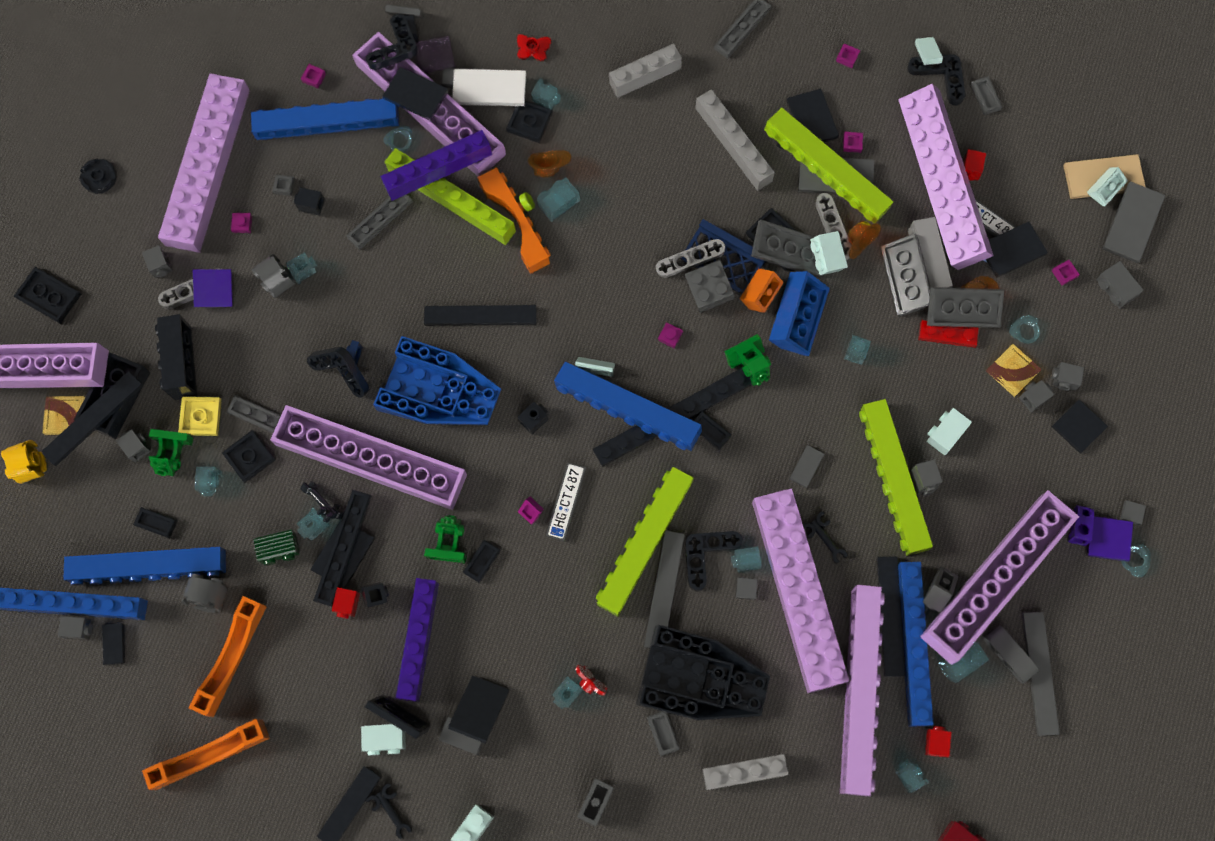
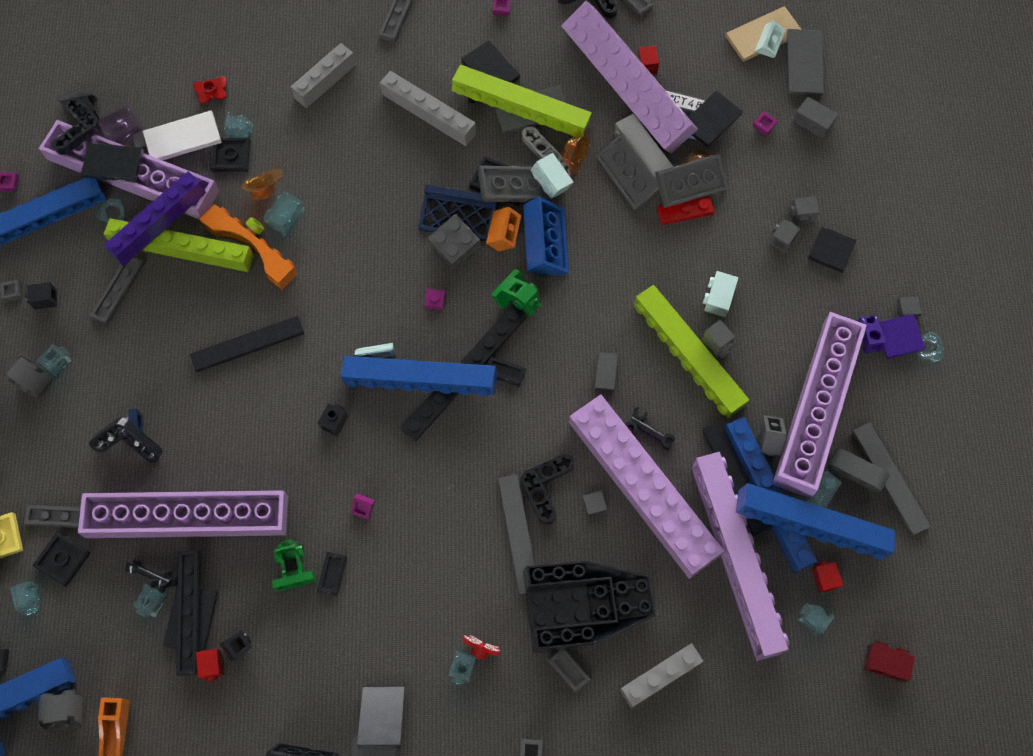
camera: 25 degrees left, 5 degrees down
(276, 547) = (119, 637): dark green brick -> none
(417, 640) = (295, 674): dark purple brick -> none
(436, 387) = (227, 424): blue wedge -> none
(566, 502) = (393, 487): tile -> none
(644, 542) = (482, 496): lime brick -> none
(689, 255) = (425, 221): light grey beam -> none
(746, 559) = (584, 475): clear light blue brick -> none
(853, 142) = (535, 76): magenta plate -> none
(857, 350) = (611, 251): clear light blue brick -> none
(947, 688) = (815, 521): none -> blue brick
(1013, 370) = (755, 221): clear yellow tile -> none
(1029, 320) = (750, 174): clear light blue piece -> none

